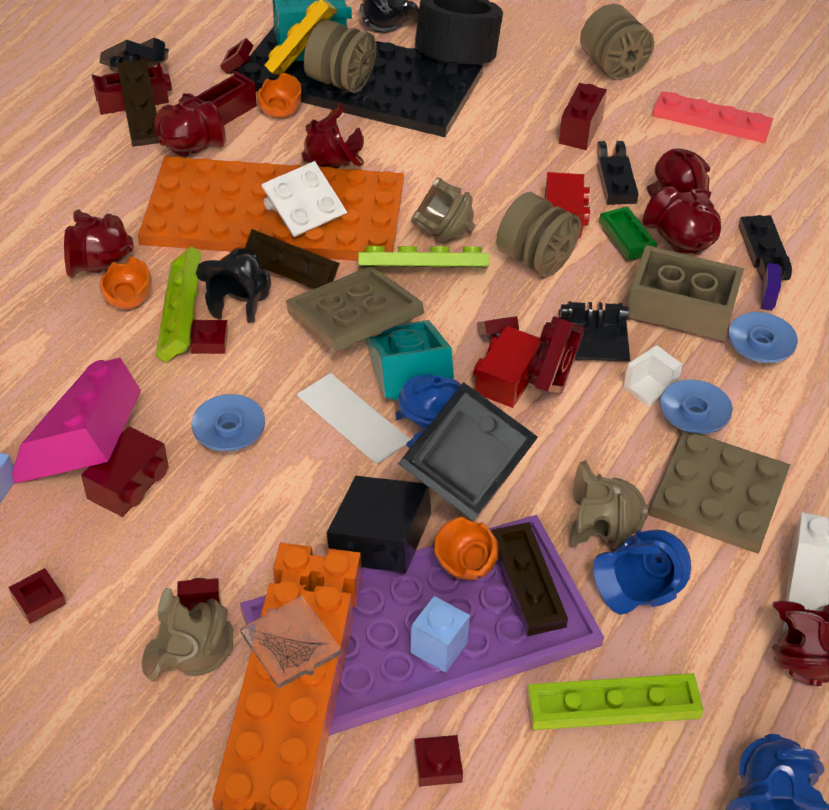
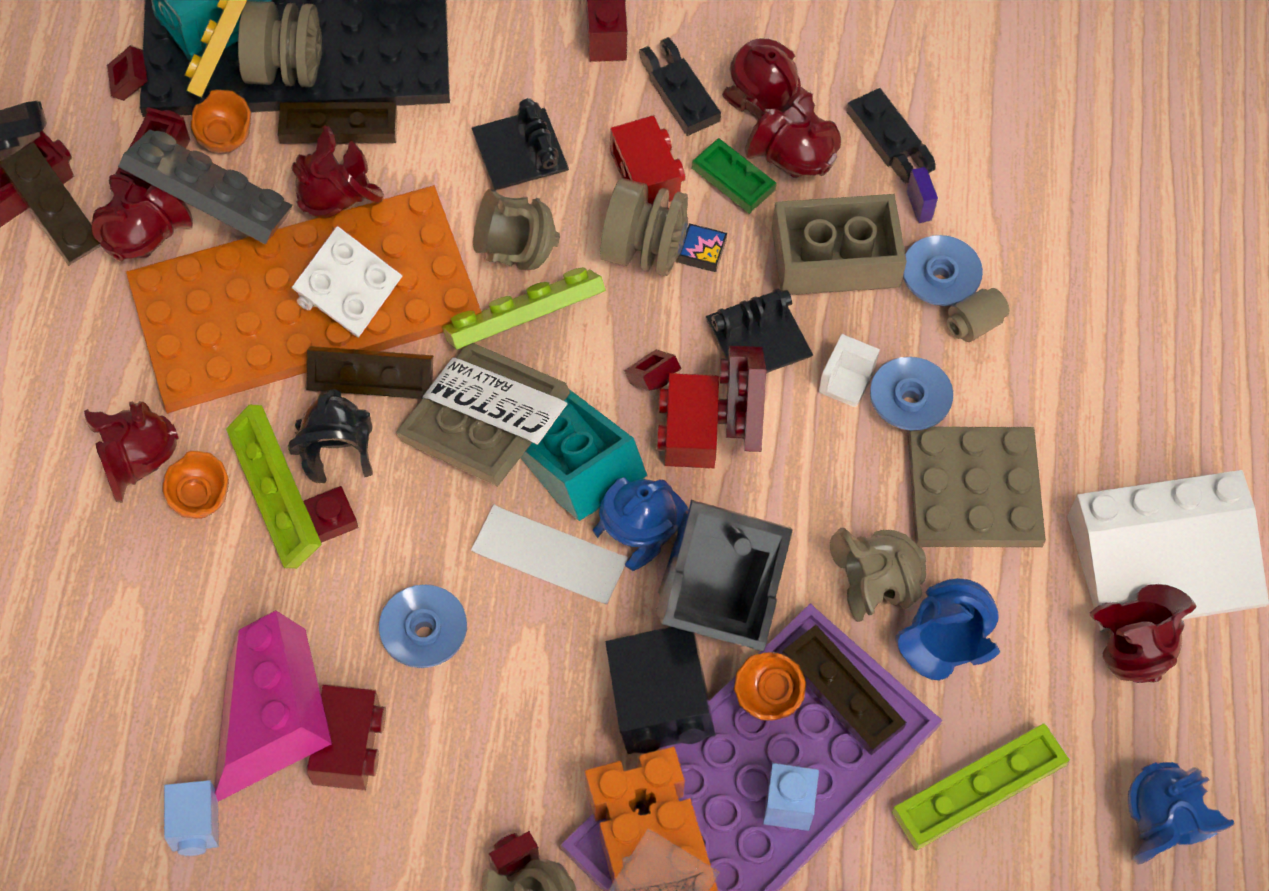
camera: 25 degrees left, 15 degrees up
(242, 117) = (205, 185): none -> dark grey plate
(367, 299) = (495, 400): none -> white sticker
(371, 123) = (348, 121): none -> dark brown plate
(480, 172) = (520, 147): none -> black hinge
(580, 269) = (702, 247): none -> tile
(778, 374) = (977, 314): none -> dark tan brick

